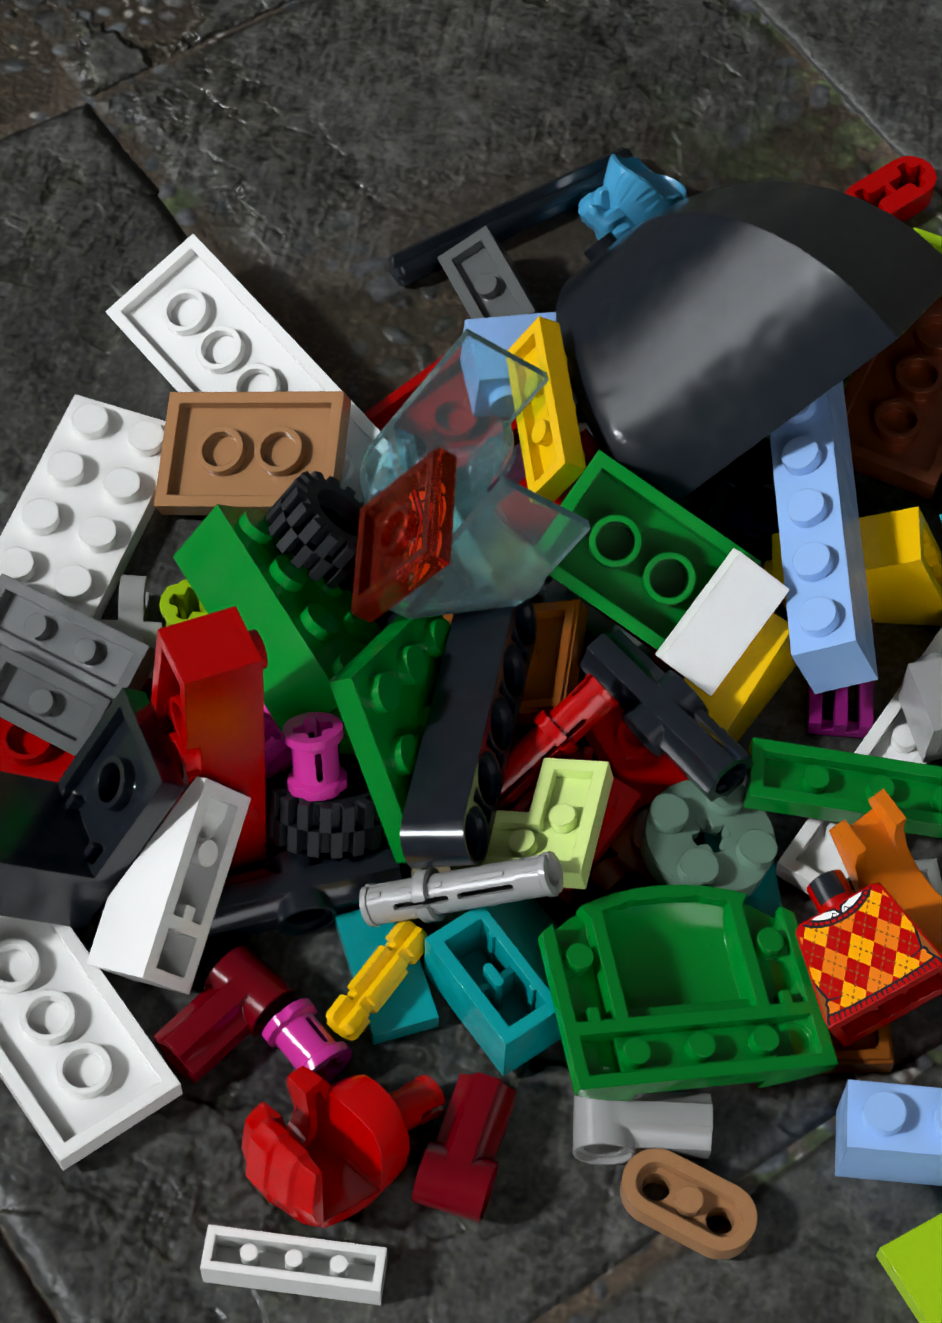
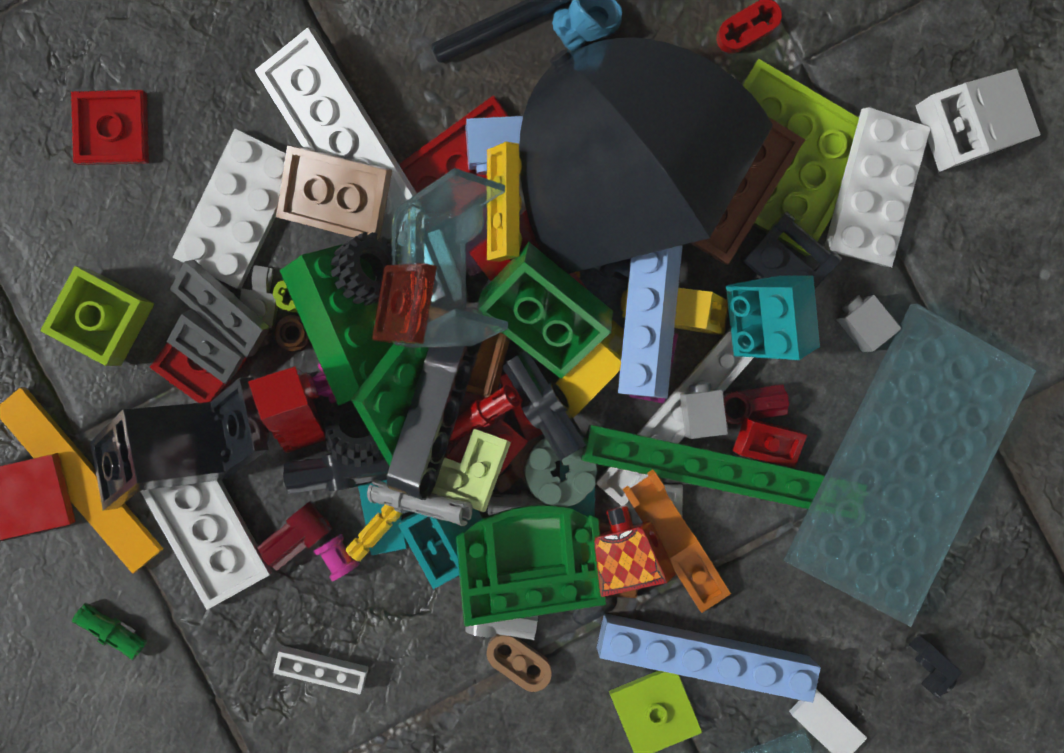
camera: 10 degrees right, 30 degrees up
(169, 895) = (265, 484): white slope -> none
(327, 734) = (338, 416): dark pink bush -> none
(338, 1146) = (343, 620): red piece -> none
(462, 1162) = (409, 628): dark red piece -> none
(487, 278) = (493, 80): dark grey panel -> none
(722, 621) = (583, 363): white tile -> none

